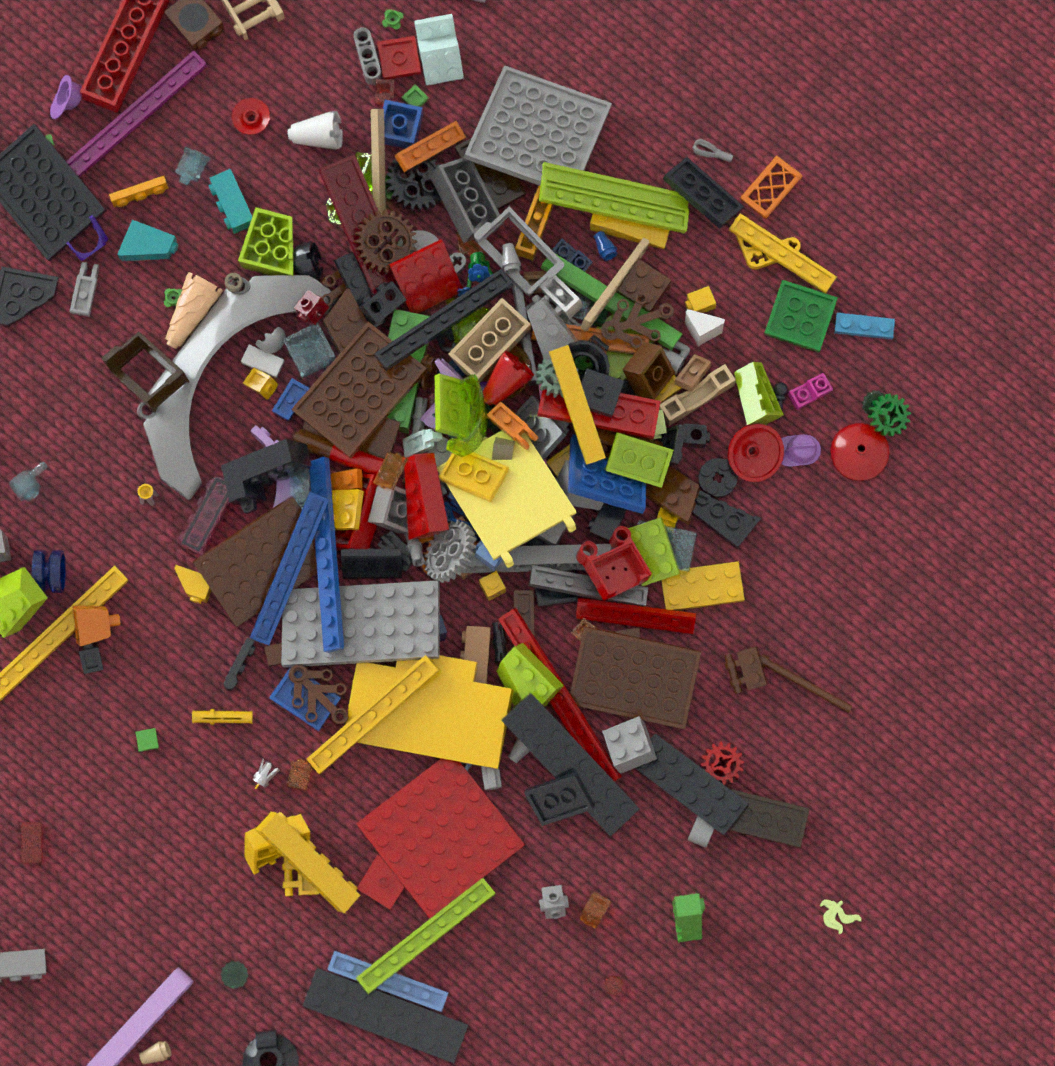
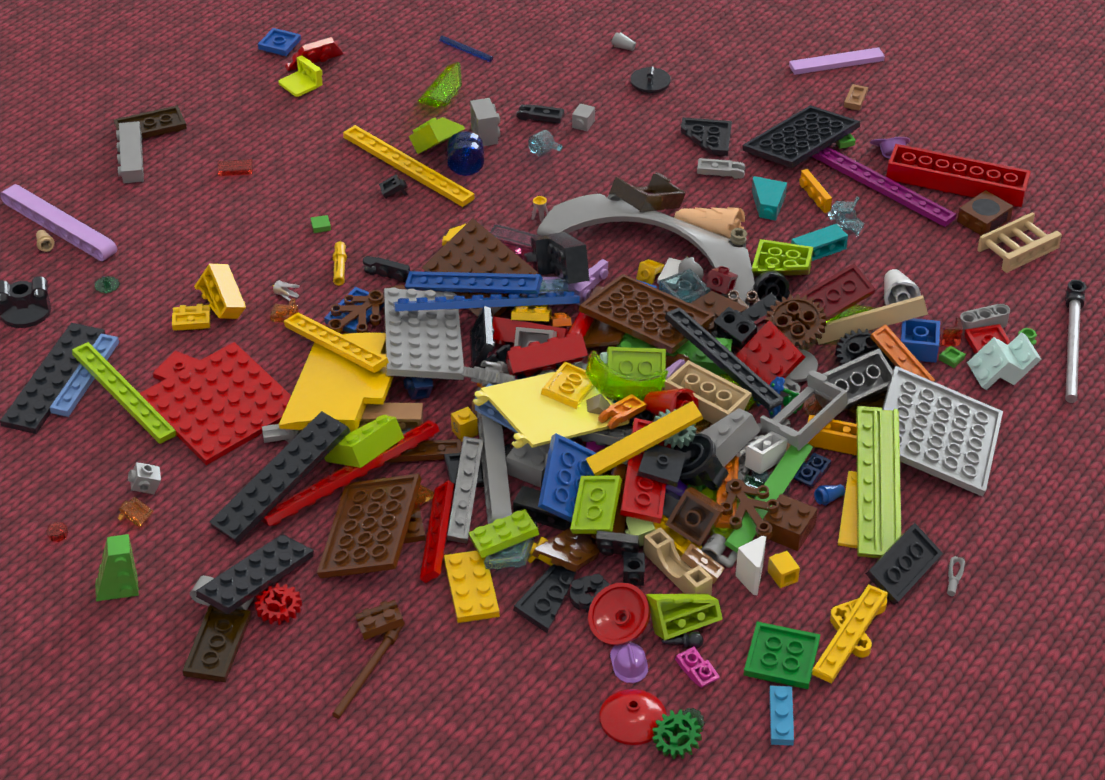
camera: 85 degrees right, 35 degrees down
(93, 623) = (421, 180): orange torso -> none
(101, 240) = (763, 172): dark purple helmet -> none
(247, 108) = (903, 250): red dish -> none
(307, 861) = (197, 303): yellow brick -> none
(390, 471) = (566, 330): clear orange piece -> none
(510, 260) = (792, 404): light grey cone -> none
(559, 798) = (245, 470): black plate -> none
(614, 285) = (781, 485): tan tile -> none
(616, 569) = (480, 495): red piece -> none
(629, 744) = (299, 523): light grey brick -> none
(775, 201) = (923, 614): orange window -> none
(829, 916) = (110, 710): yellowish green piece -> none

